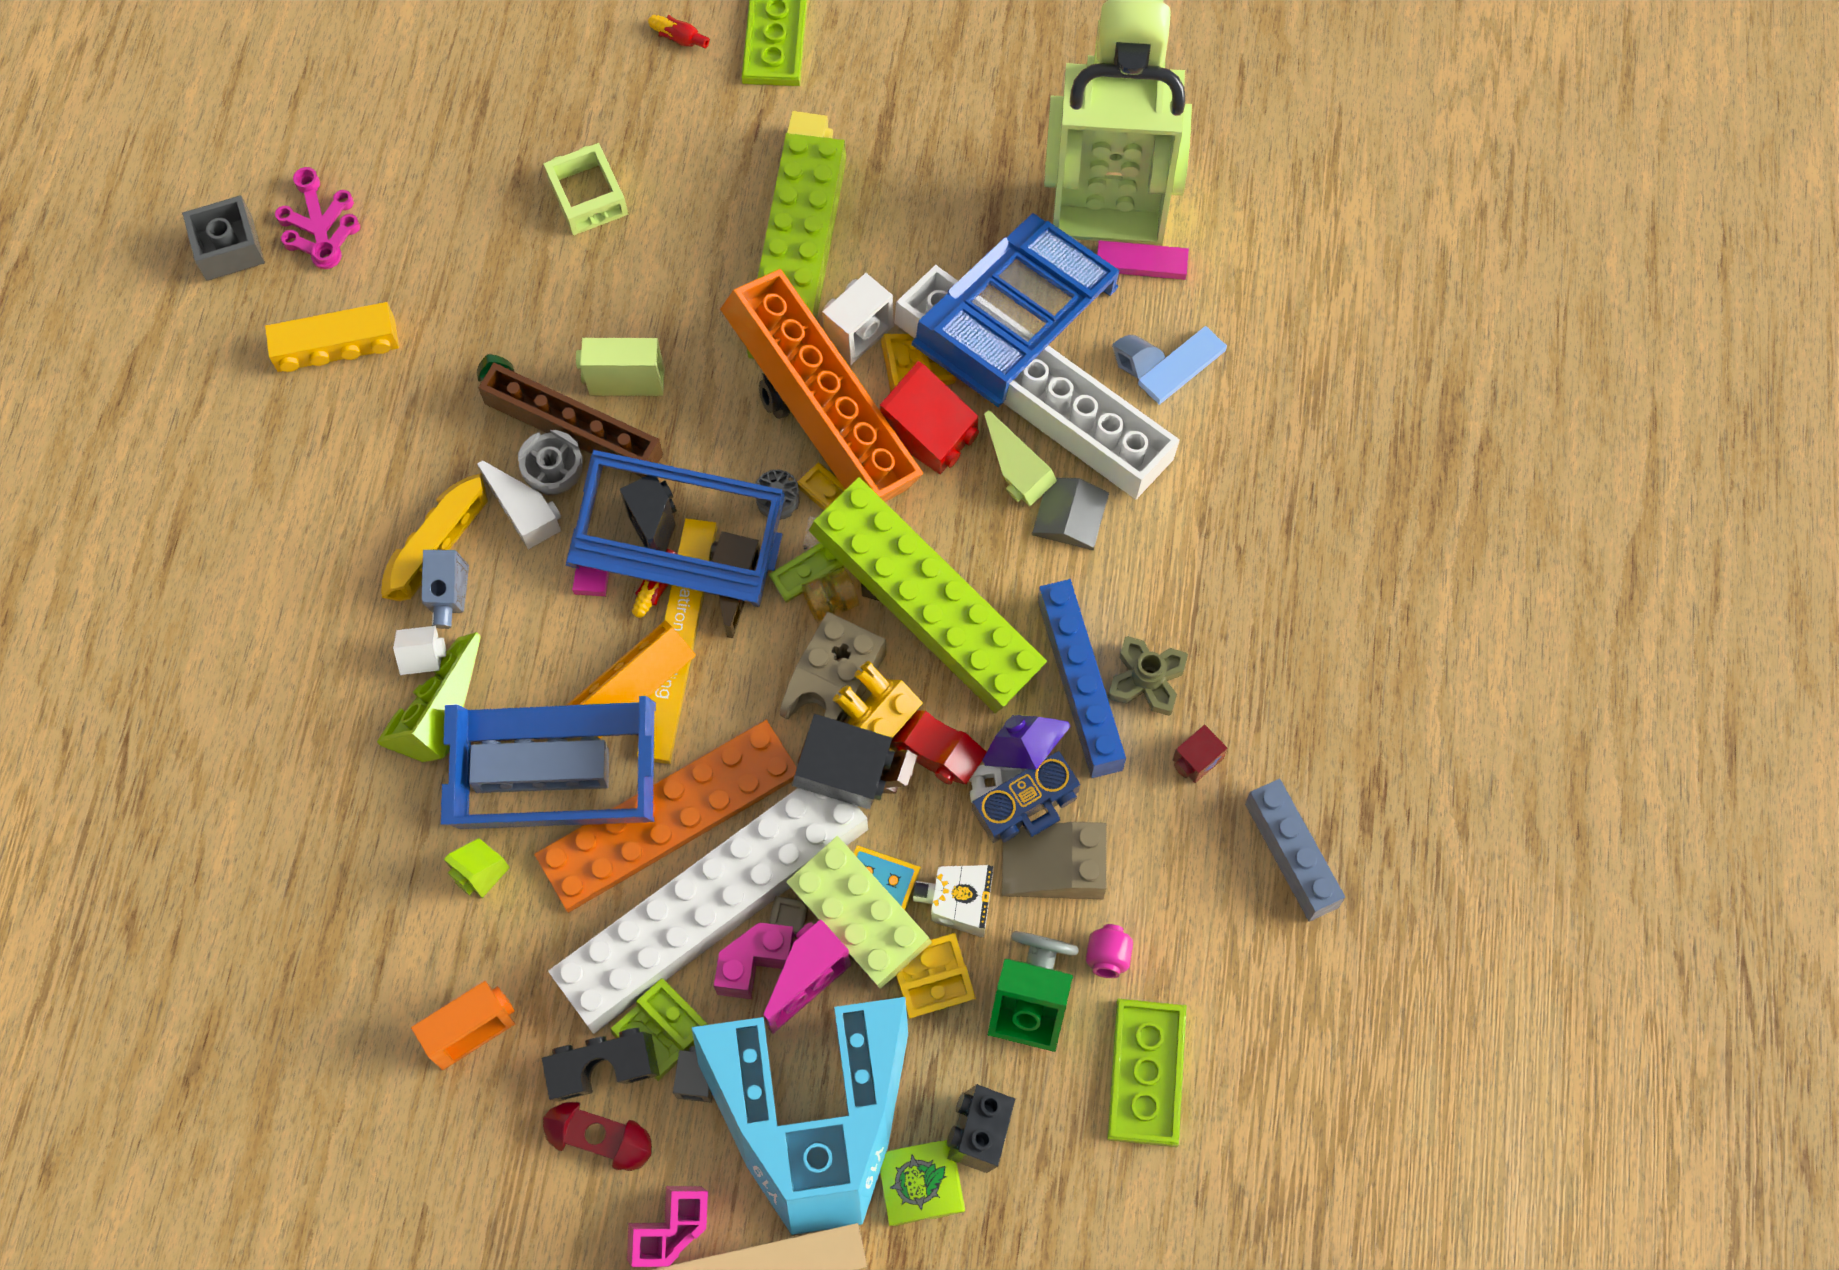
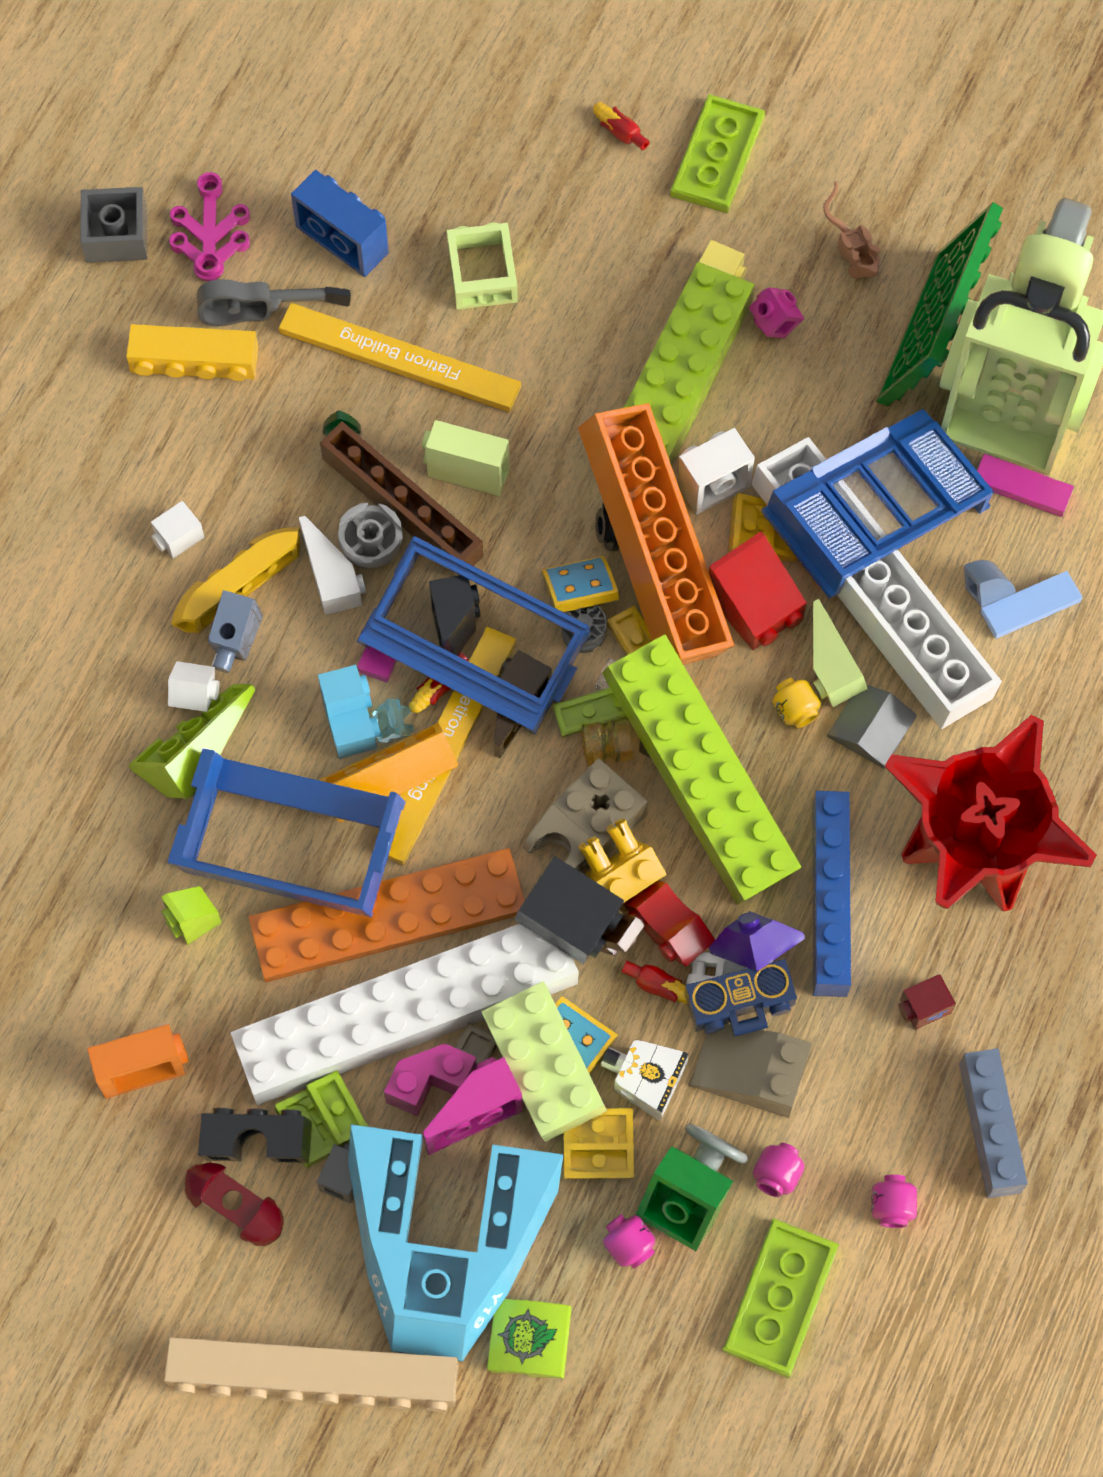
camera: 15 degrees right, 0 degrees up
(358, 280) = (231, 302): none -> dark grey piece
(362, 507) = (176, 530): none -> white brick
(440, 181) = (340, 222): none -> blue brick
(531, 292) = (400, 357): none -> yellow tile
(539, 765) = (277, 831): sand blue brick -> none
(572, 627) = (346, 705): none -> medium azure brick
(618, 630) = (391, 722): none -> clear light blue tile
(662, 1242) = (292, 1308): dark pink brick -> none
(762, 455) = (580, 584): none -> slope
(871, 161) = (776, 312): none -> dark pink brick
(925, 84) = (855, 245): none -> nougat animal
(942, 806) = (656, 981): none -> red piece
(980, 1128) = (601, 1302): black brick -> none
(989, 1060) = (629, 1241): none -> dark pink head
(995, 511) = (796, 702): none -> yellow head
(1022, 115) = (940, 305): none -> green plate
(1148, 675) = (898, 909): olive plant -> none
(1206, 567) = (987, 817): none -> red piece
(1225, 950) = (894, 1201): none -> dark pink head

